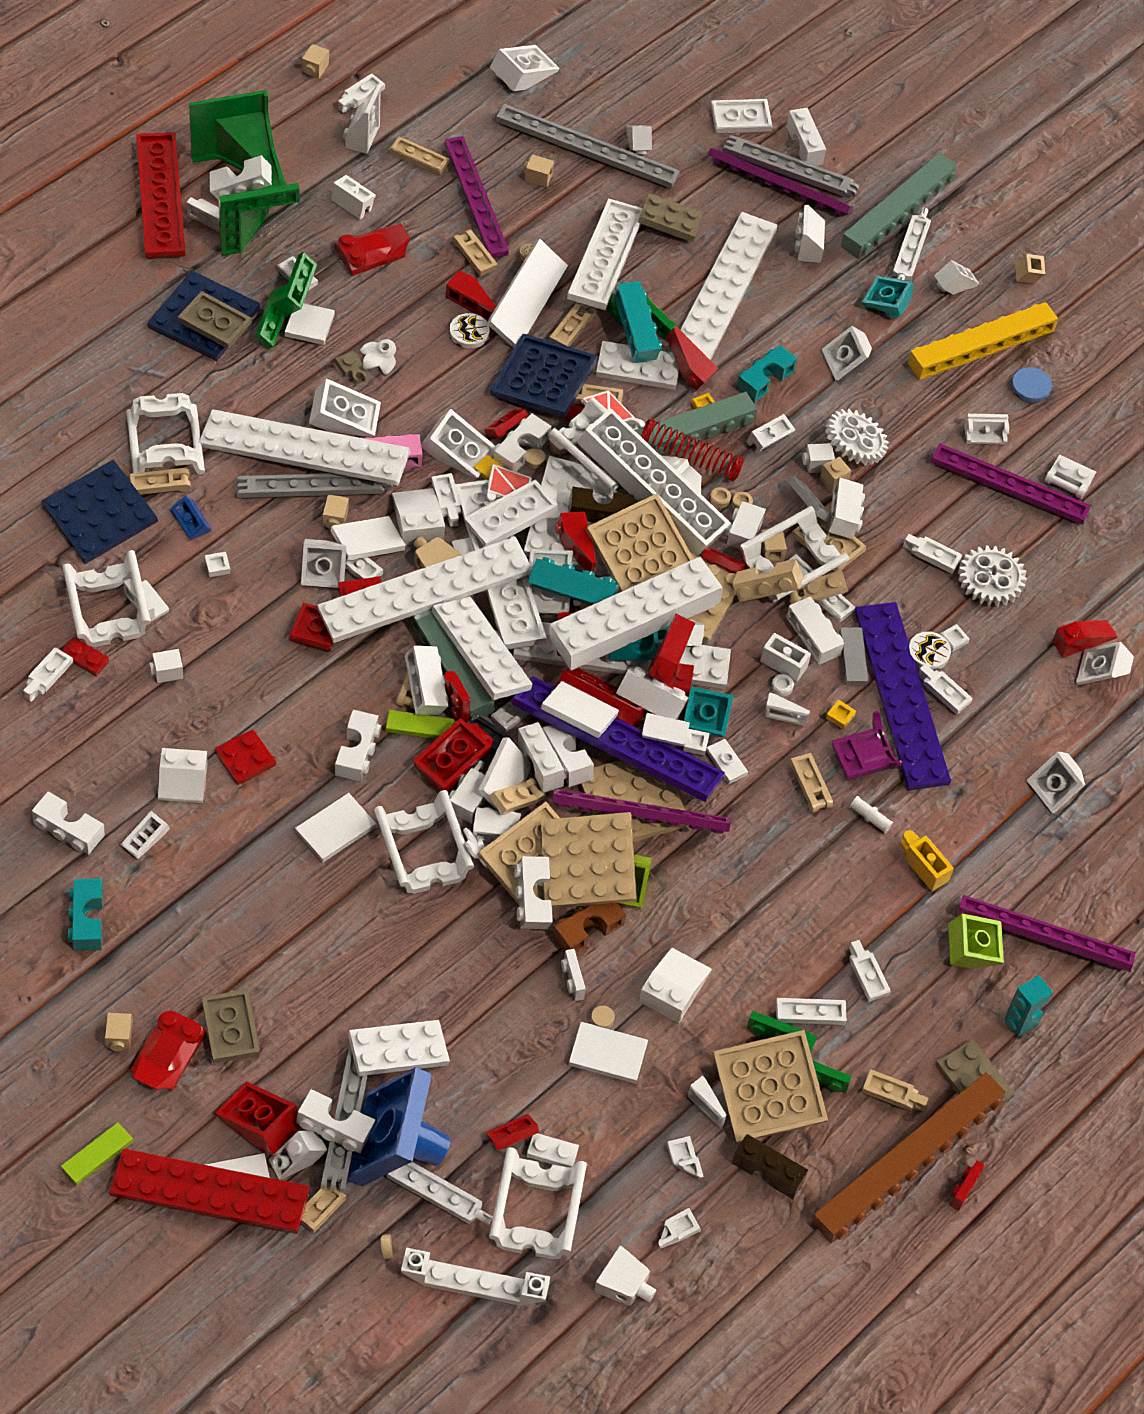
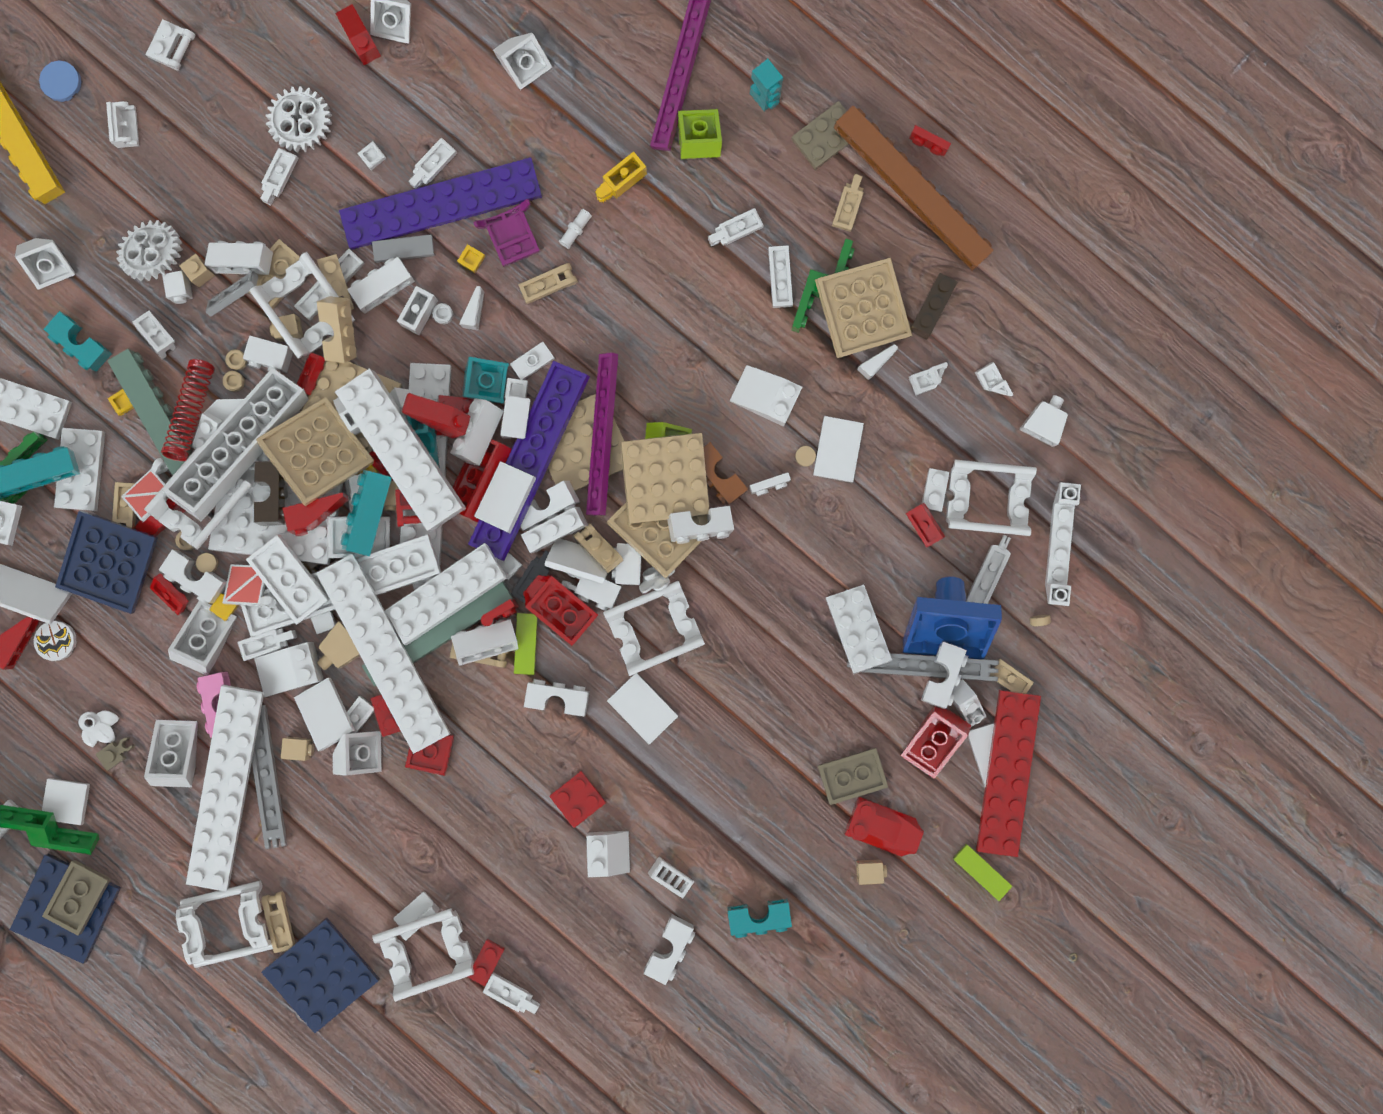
camera: 85 degrees left, 30 degrees up
(167, 666) = (490, 885): white brick -> none
(190, 518) = (316, 886): blue slope -> none
(217, 564) = (369, 853): white plate -> none
(572, 325) = (40, 540): tan plate -> none
(692, 362) = (74, 416): red slope -> none
(930, 649) = (389, 178): white tile -> none
(1011, 483) = (186, 102): magenta plate -> none

